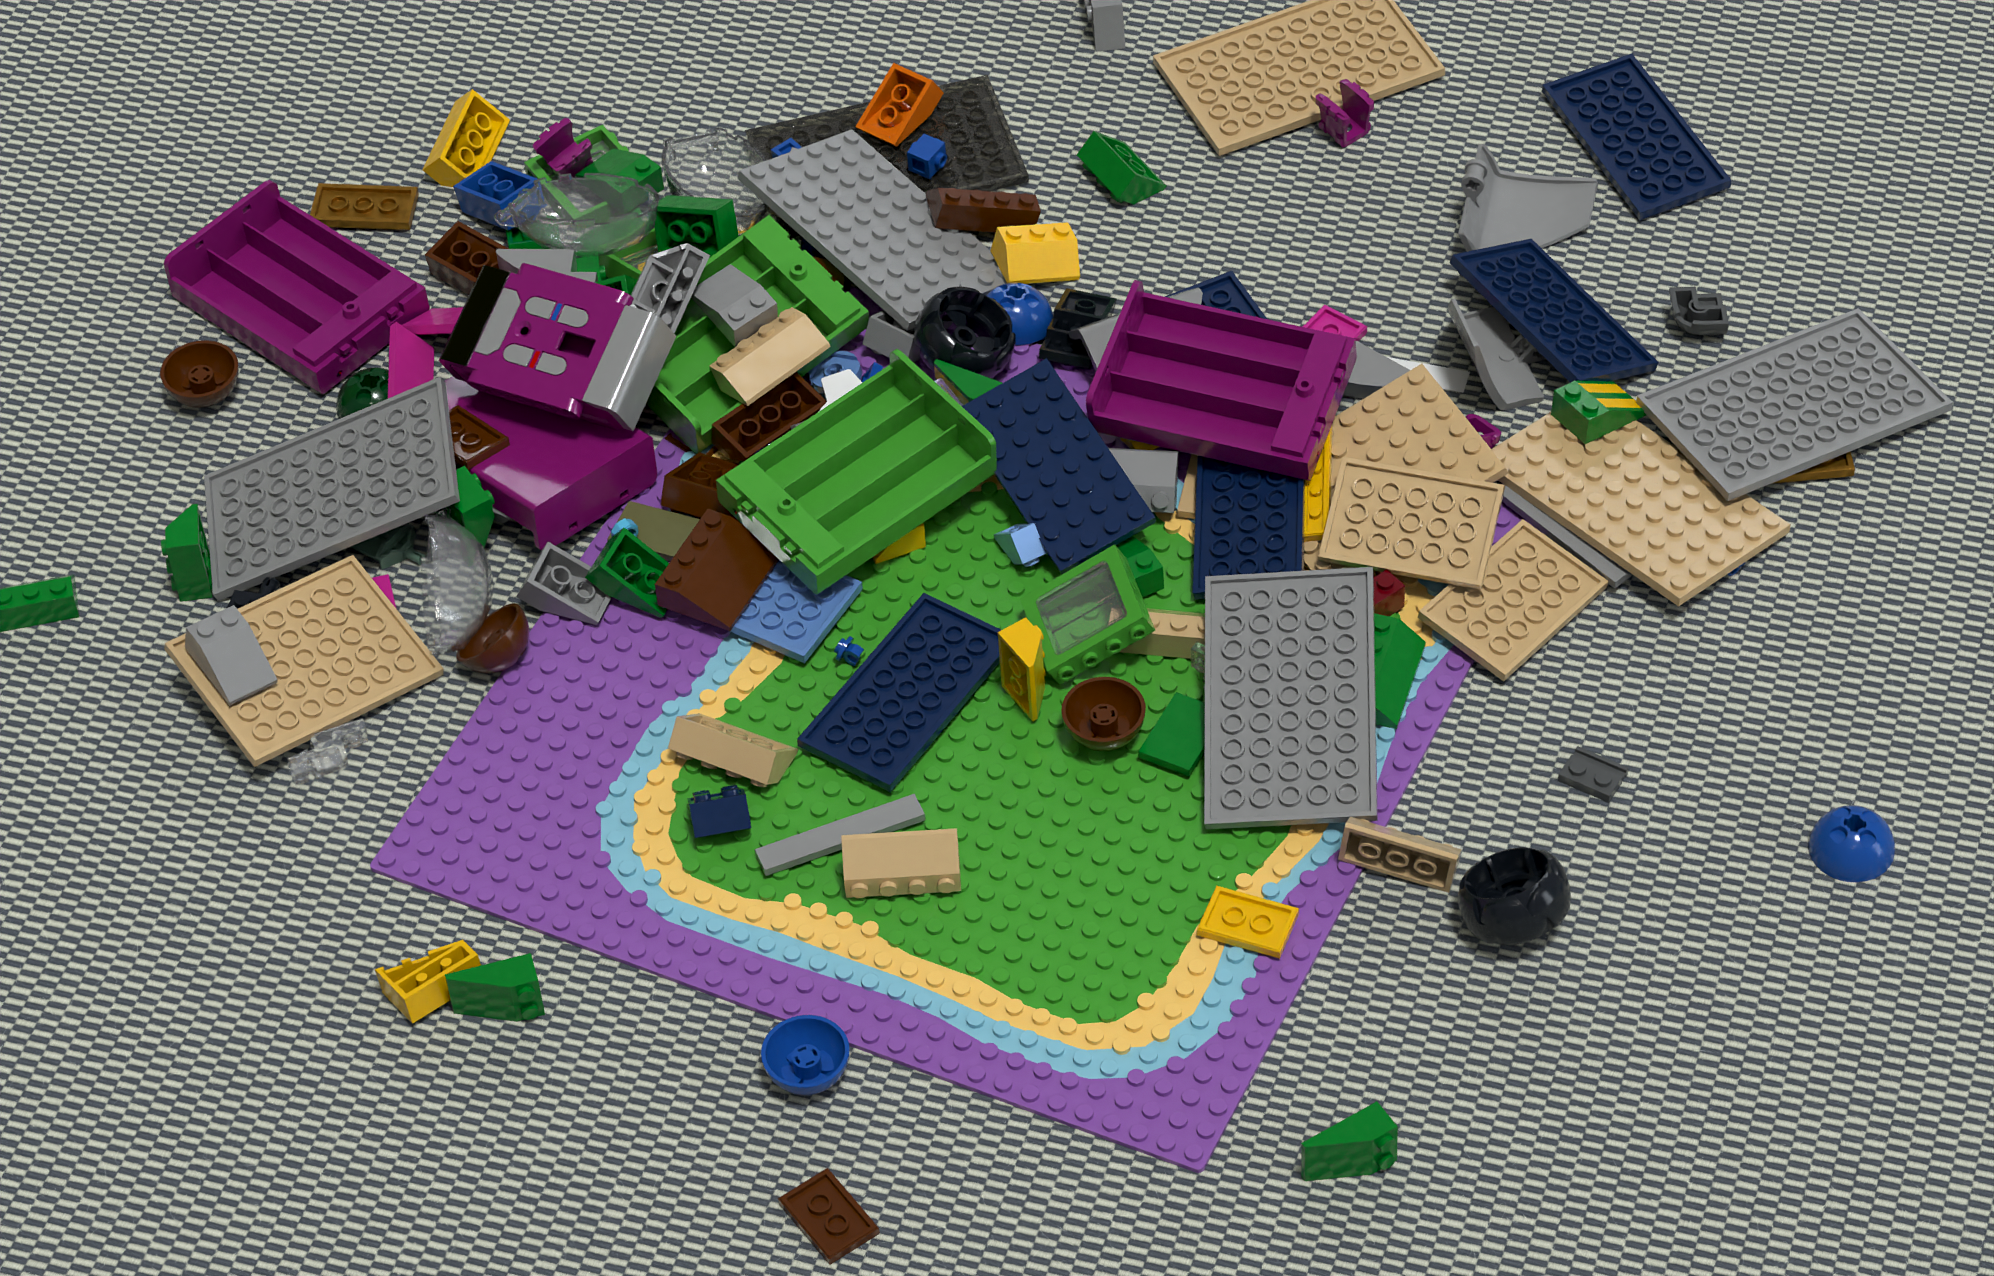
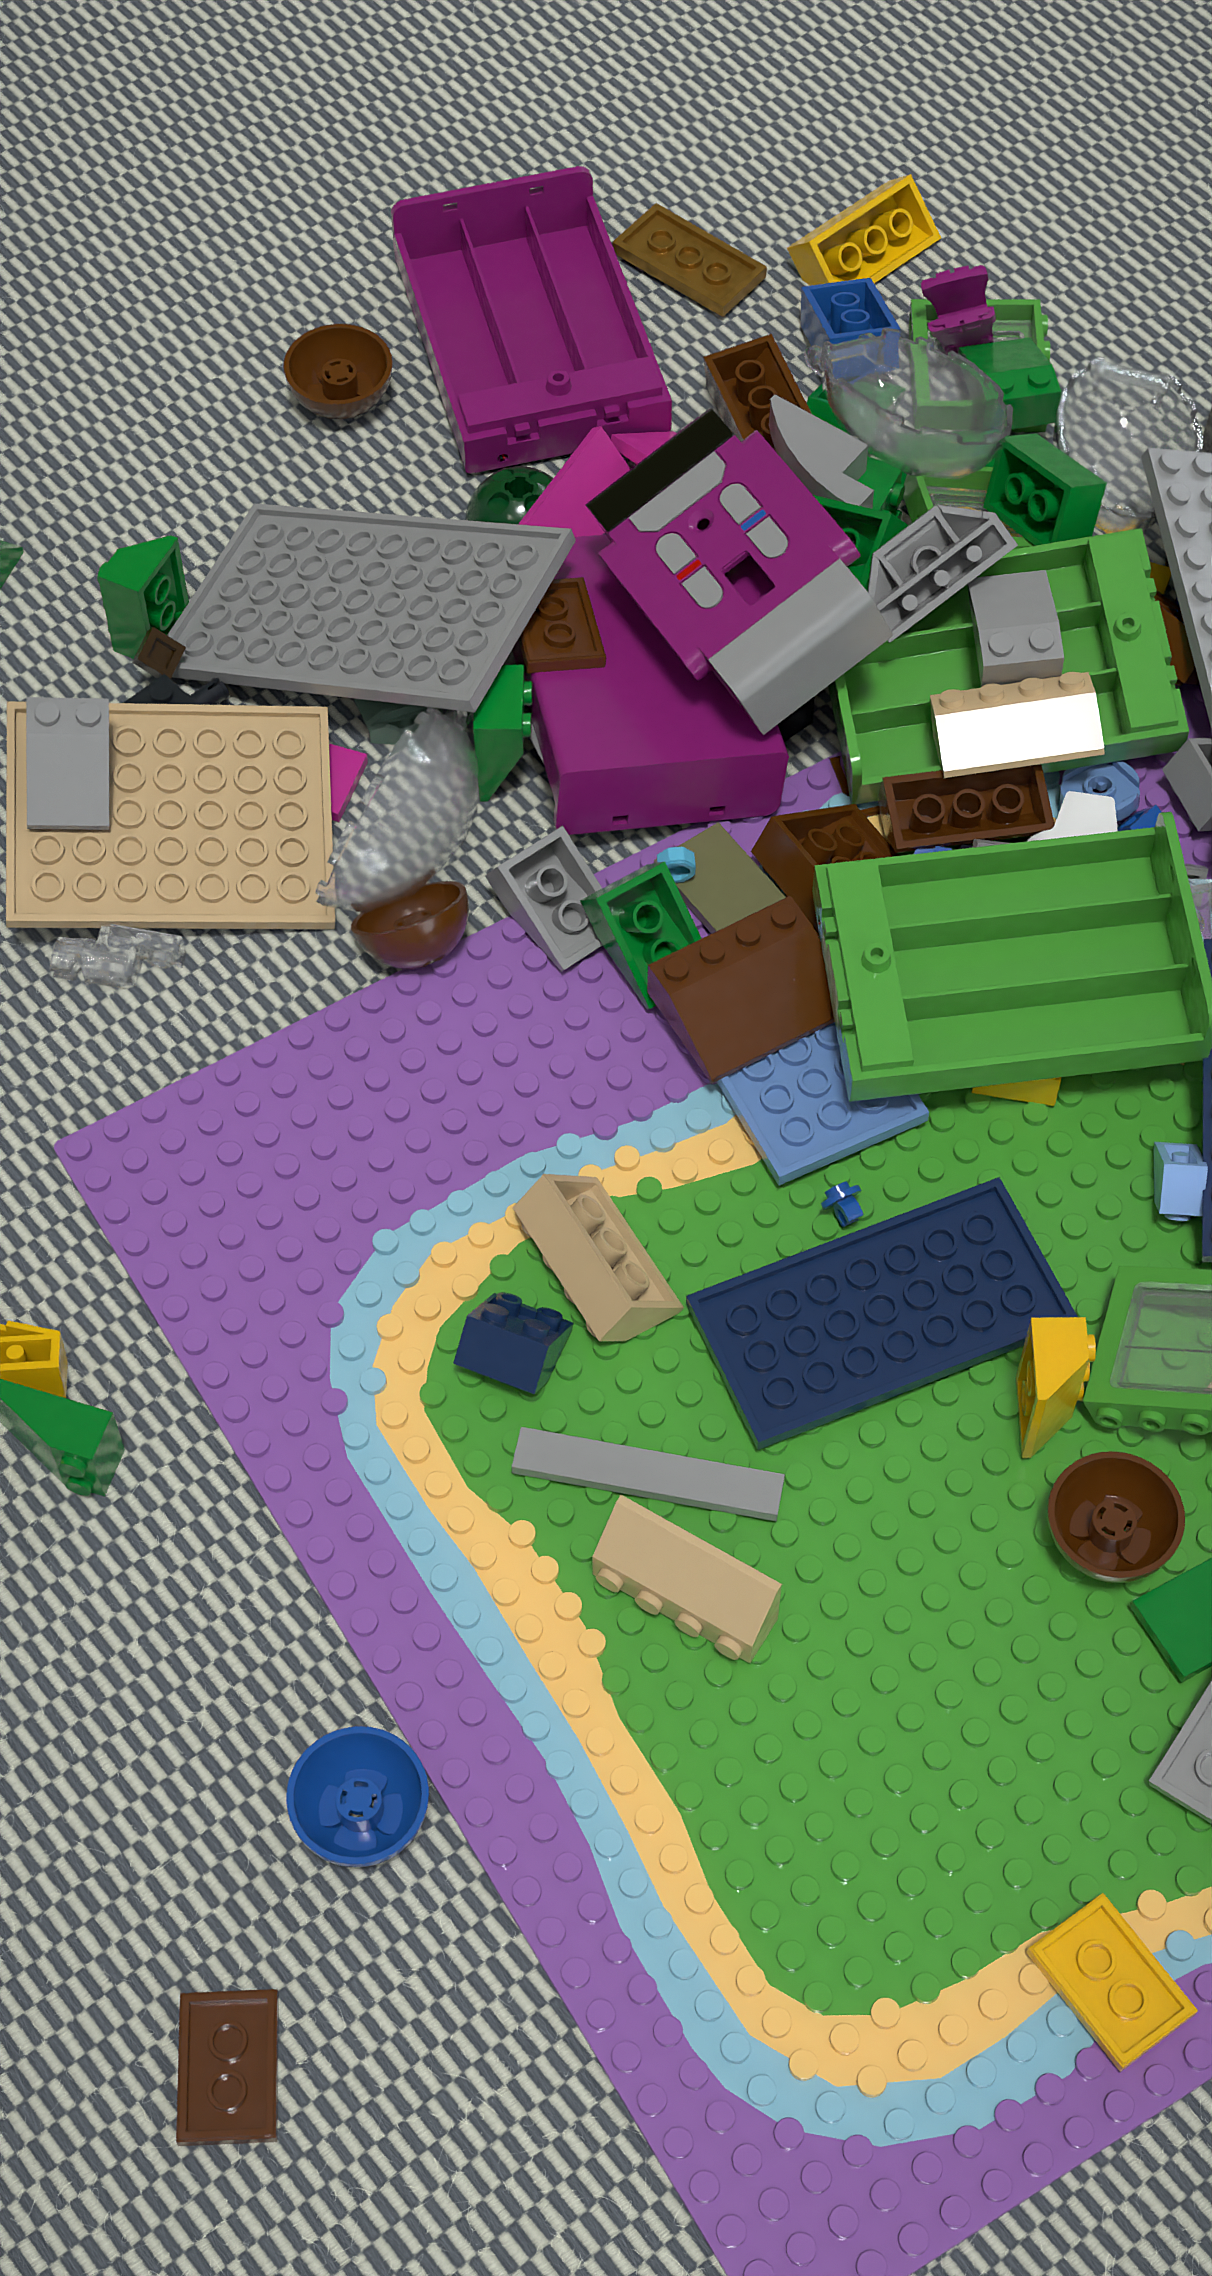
camera: 30 degrees right, 10 degrees up
(222, 581) = (158, 654): none -> dark brown plate

